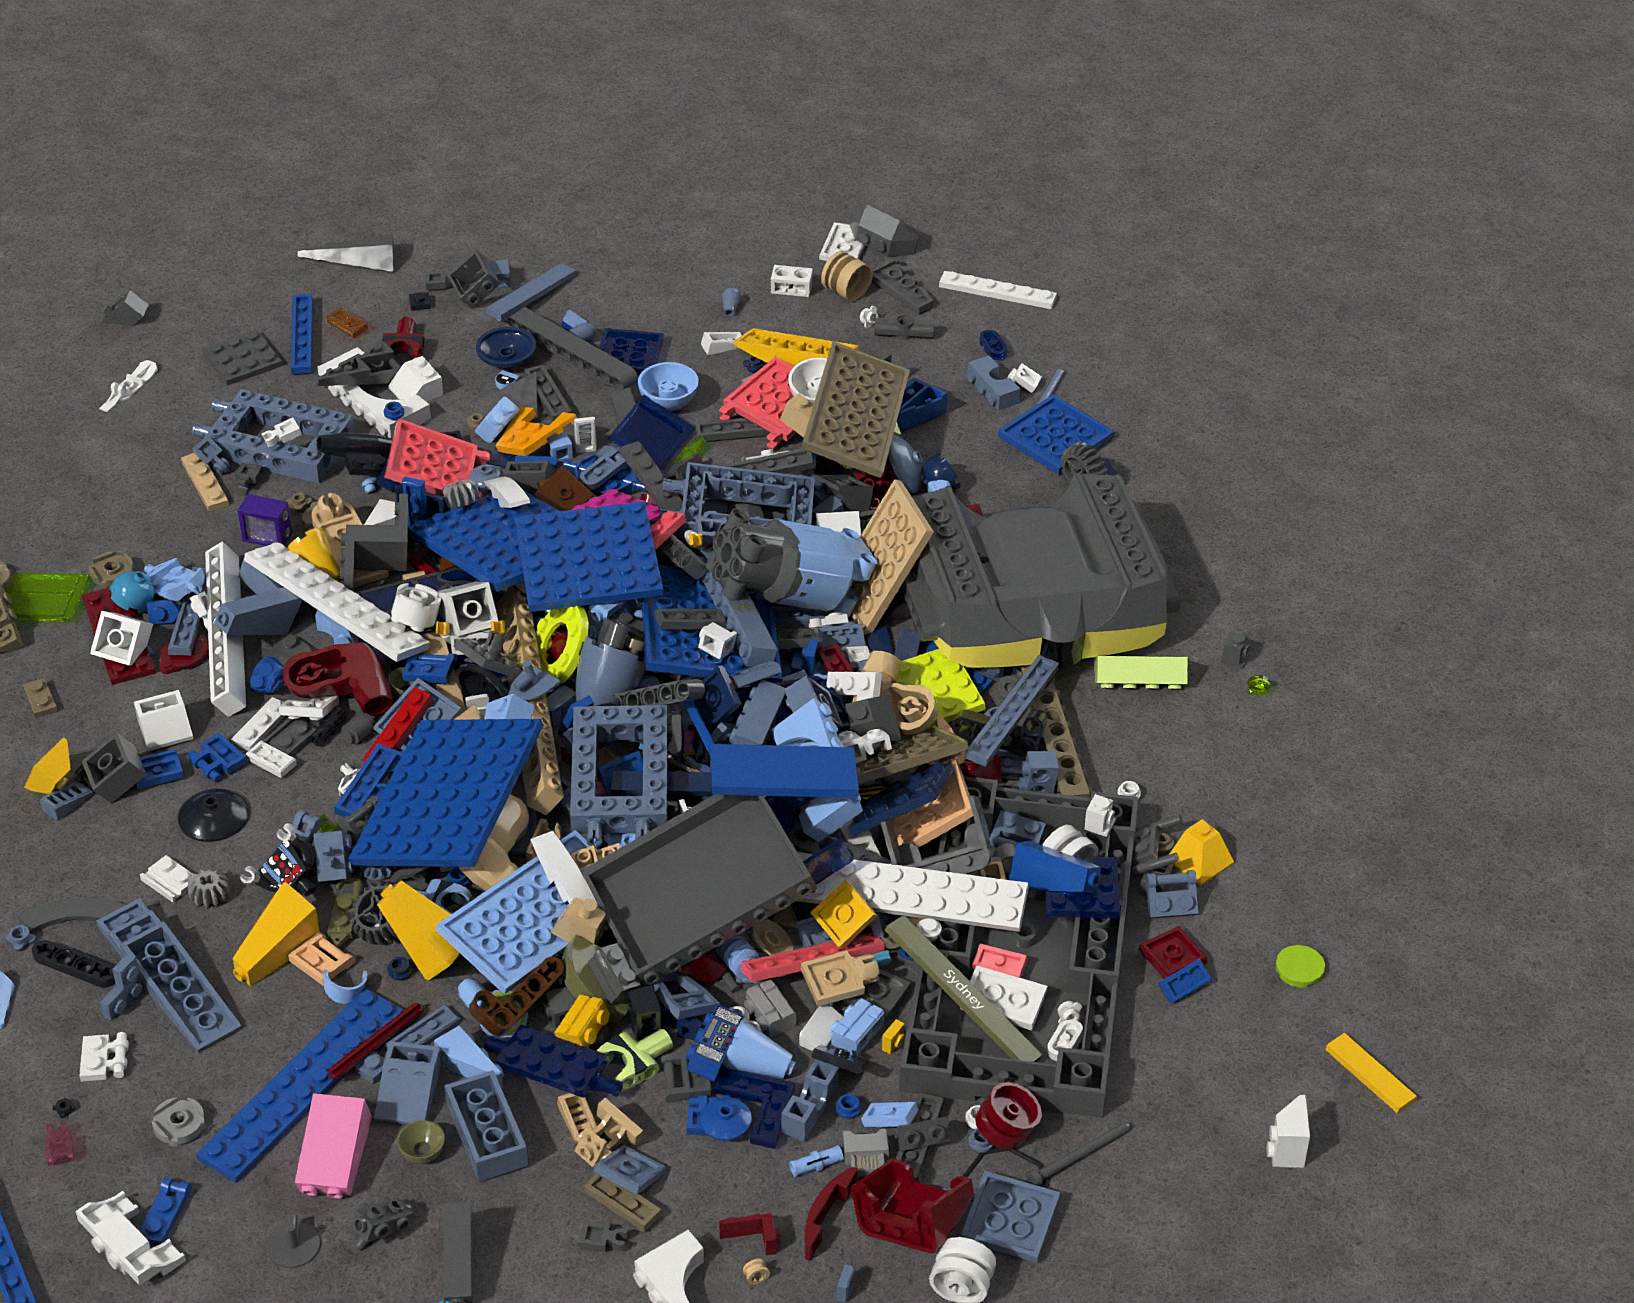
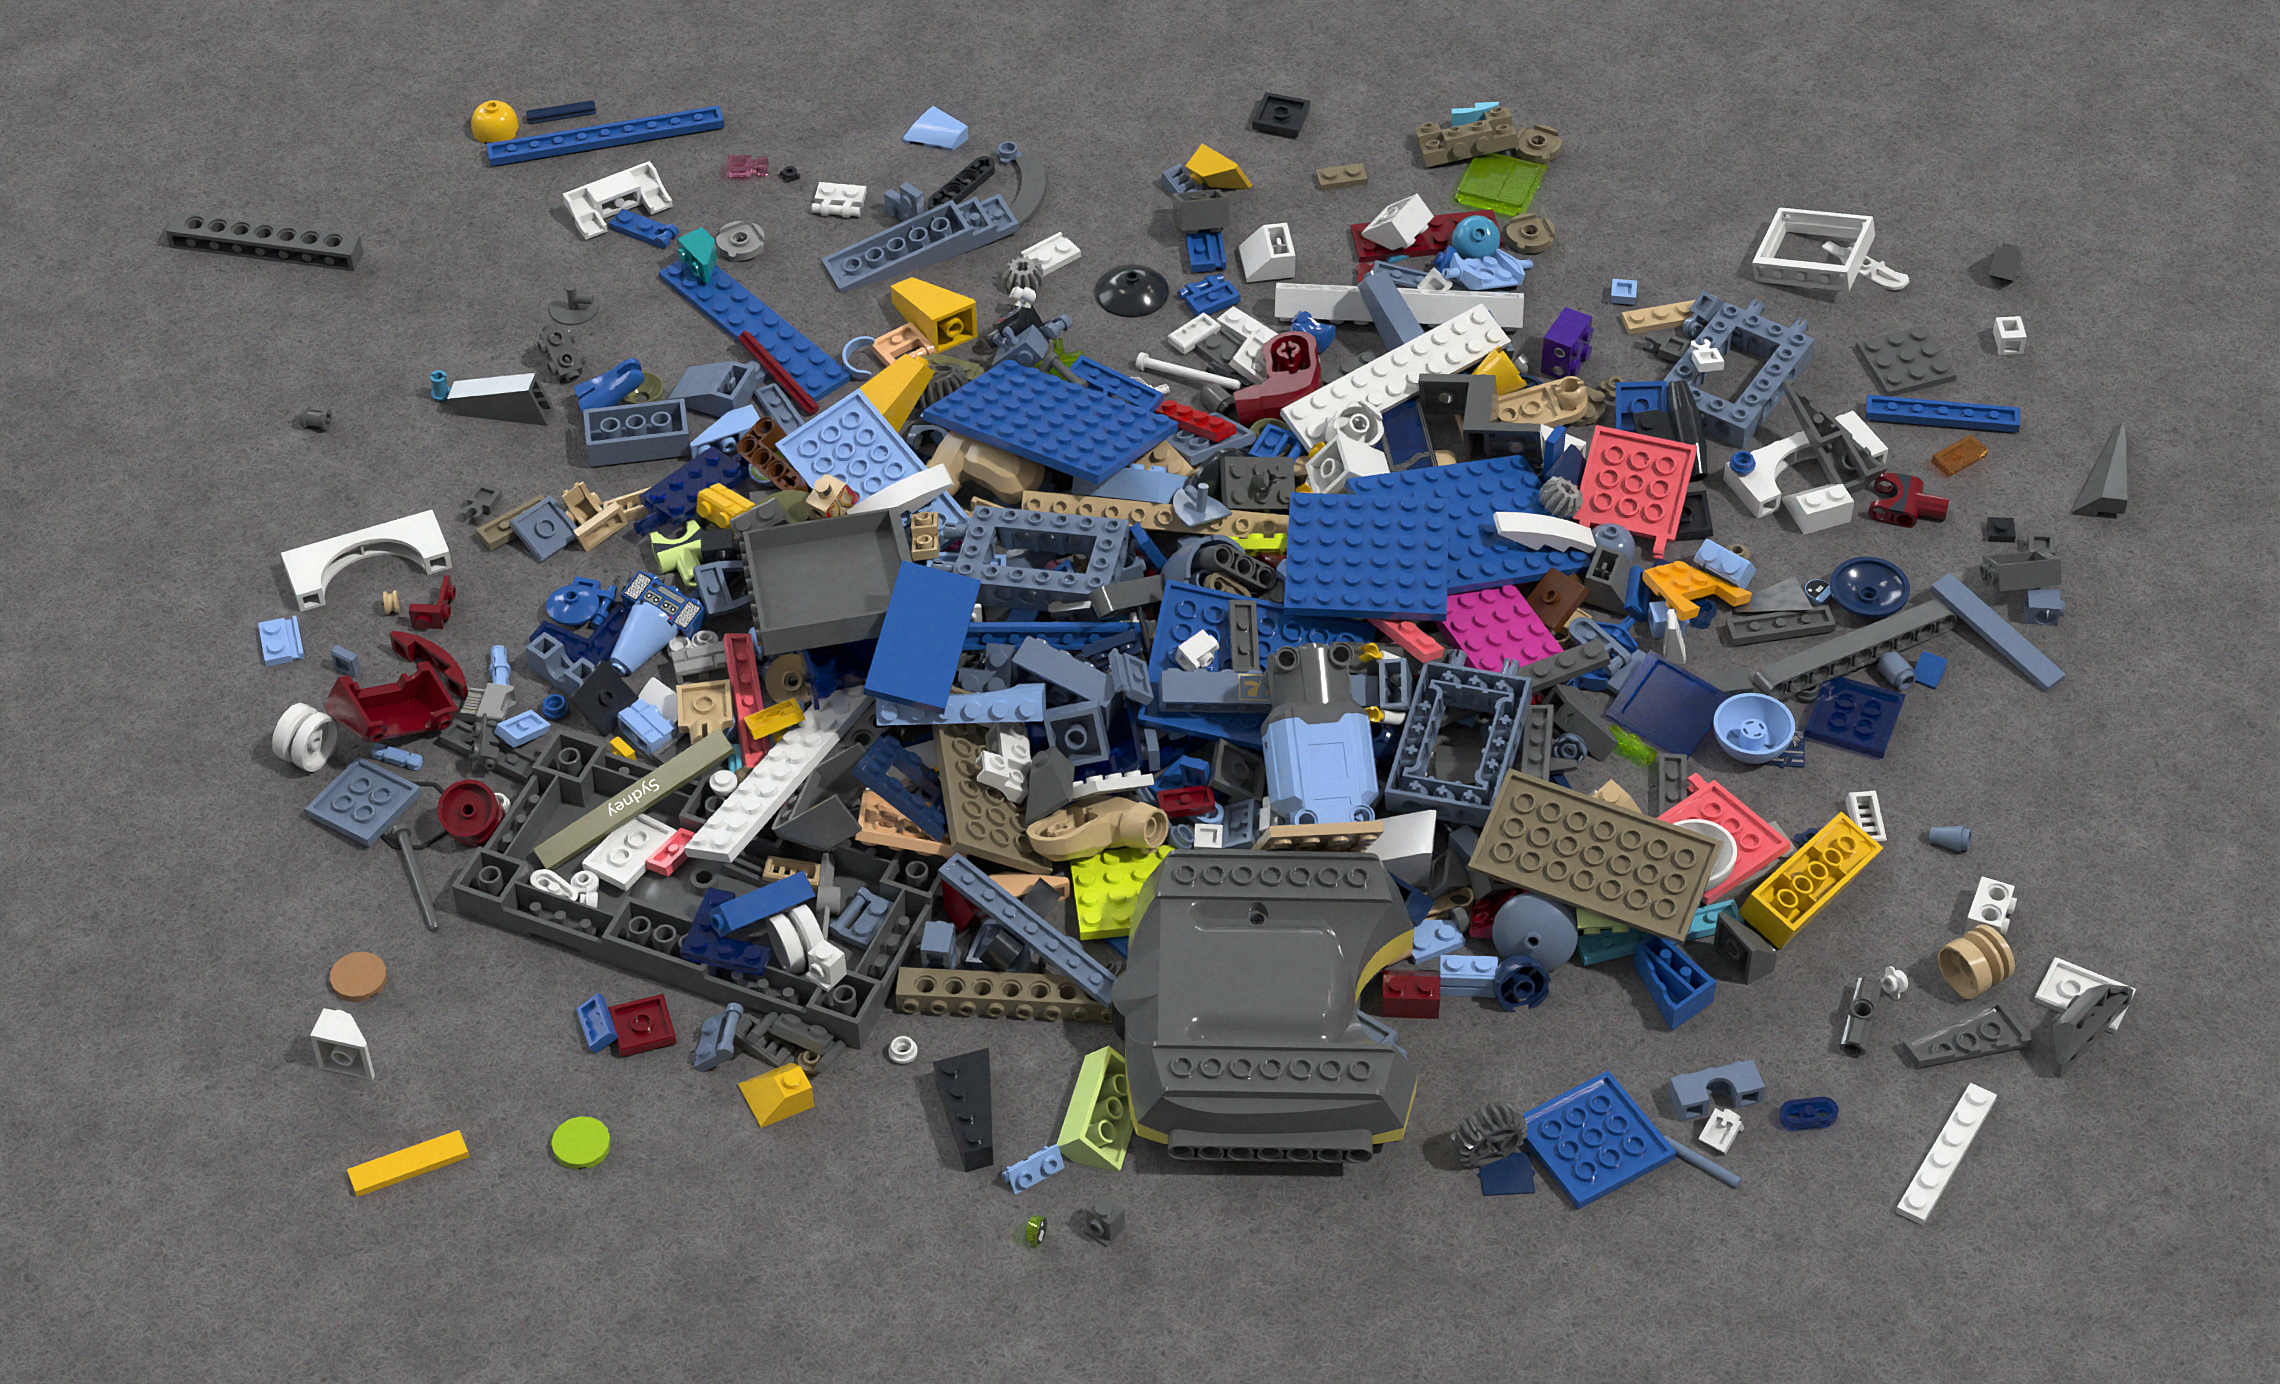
camera: 105 degrees right, 5 degrees up
(130, 372) = (1812, 274): none -> white window
(181, 507) = (1623, 291): none -> light blue plate
(209, 304) = (2009, 335): none -> white brick
(220, 1131) = (698, 252): none -> teal slope
(314, 786) = (1143, 361): none -> white bar
(333, 473) = (1638, 397): none -> blue plate
(333, 1145) = (662, 330): bright pink slope -> none
(435, 1157) = (611, 386): none -> blue piece
(1044, 1028) = (584, 879): none -> white plate
(1170, 738) = (966, 1098): none -> black wedge
(1201, 1165) = (358, 976): none -> medium nougat tile
(1211, 703) = (1035, 1169): none -> light blue hinge

